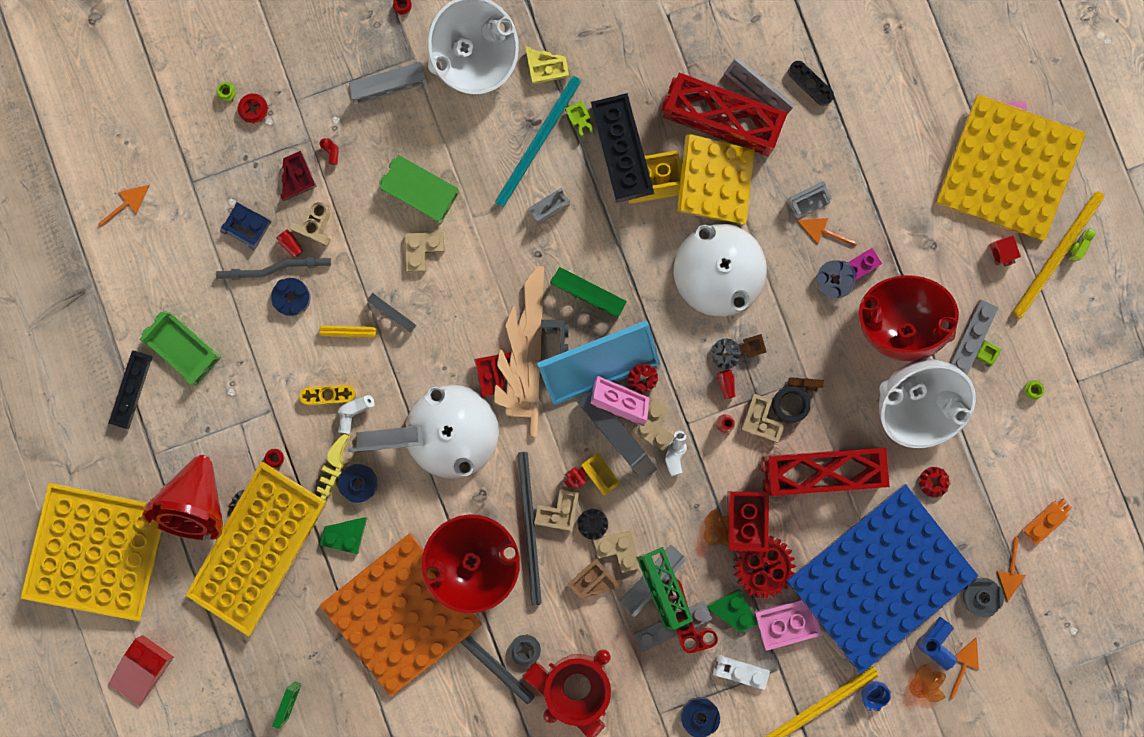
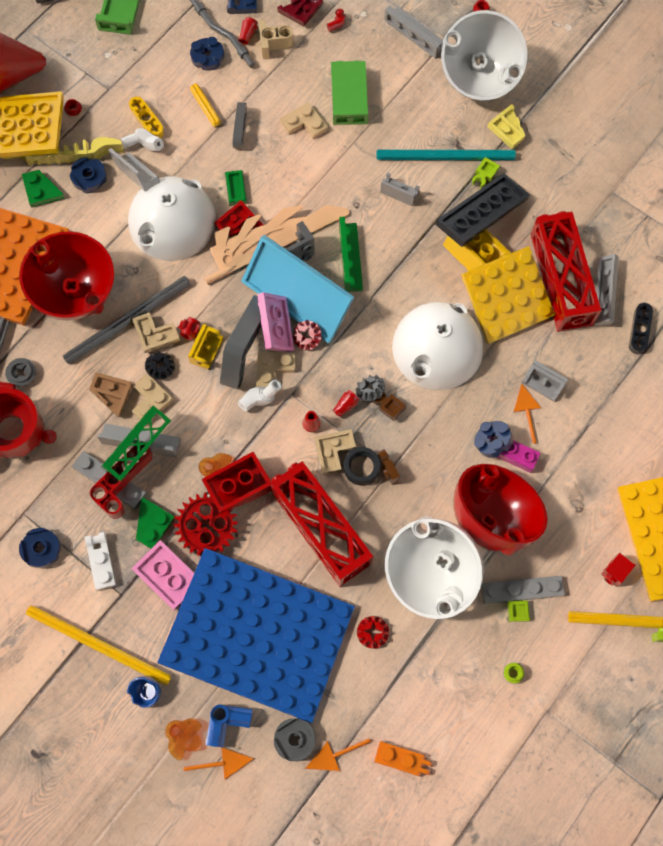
camera: 55 degrees right, 15 degrees down
(454, 354) = (235, 187): none -> green tile

